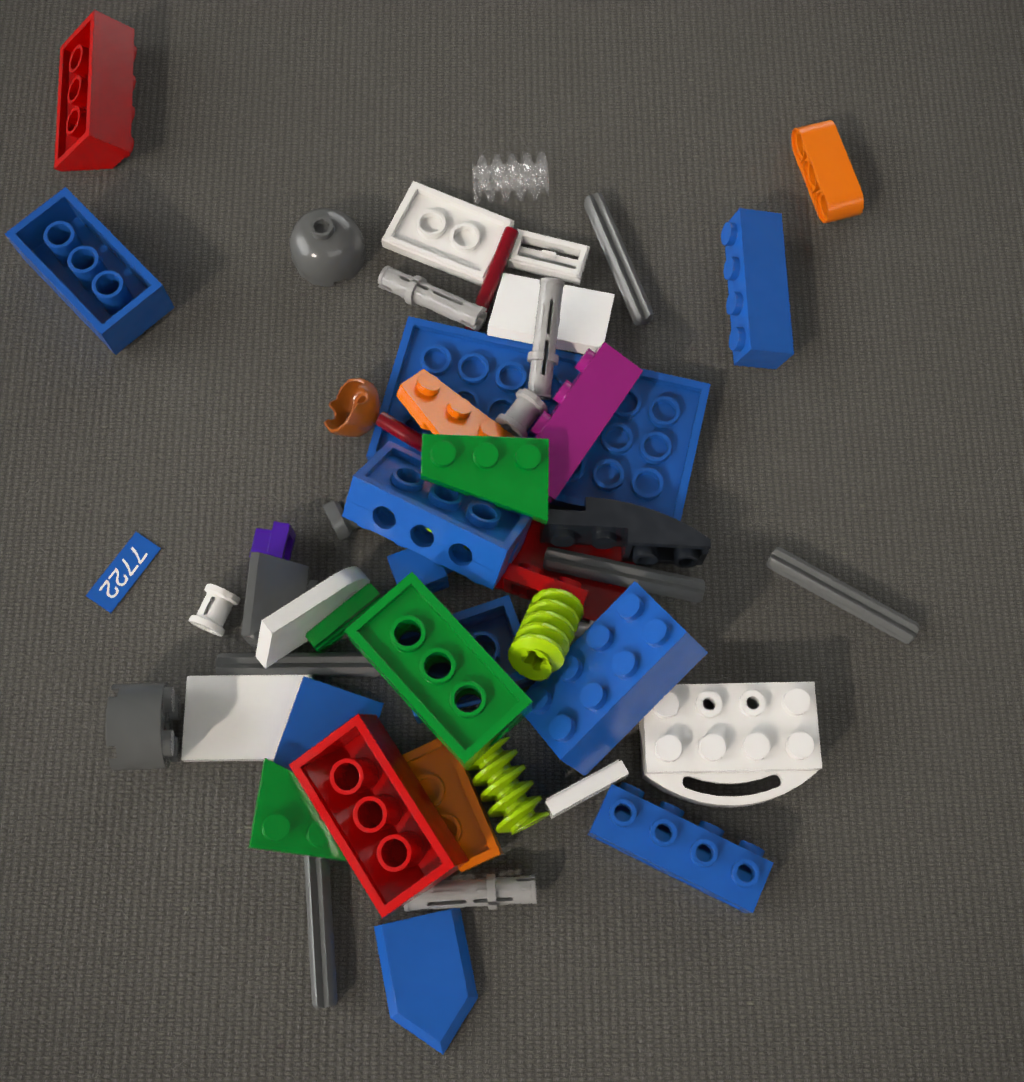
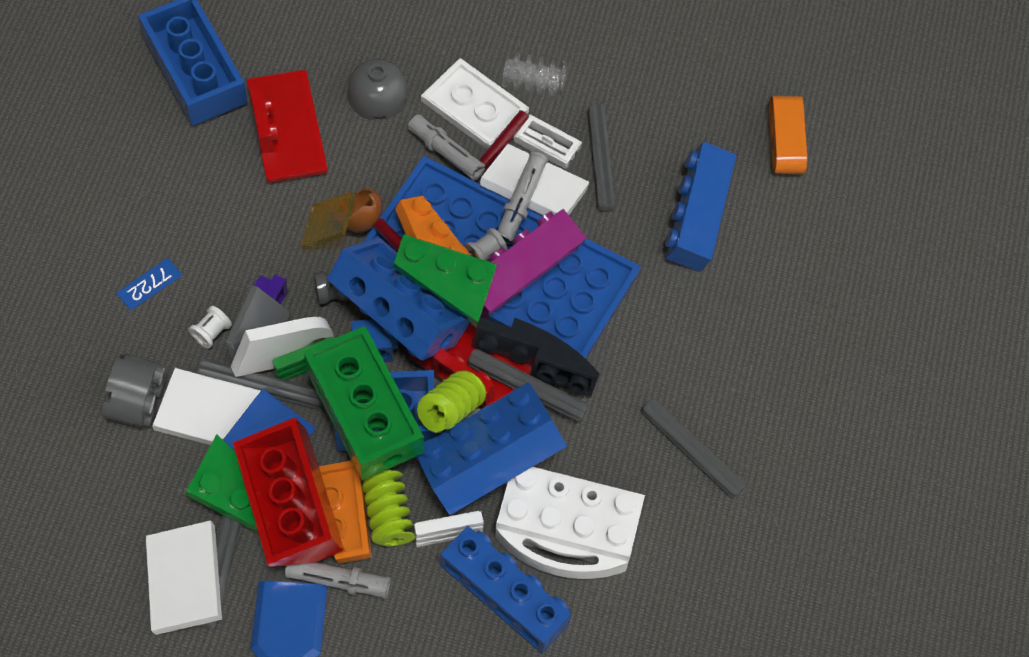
camera: 10 degrees right, 10 degrees down
(231, 323) = (287, 126): none -> red bracket
(279, 954) = (183, 577): none -> white tile
(319, 431) = (328, 220): none -> clear yellow piece

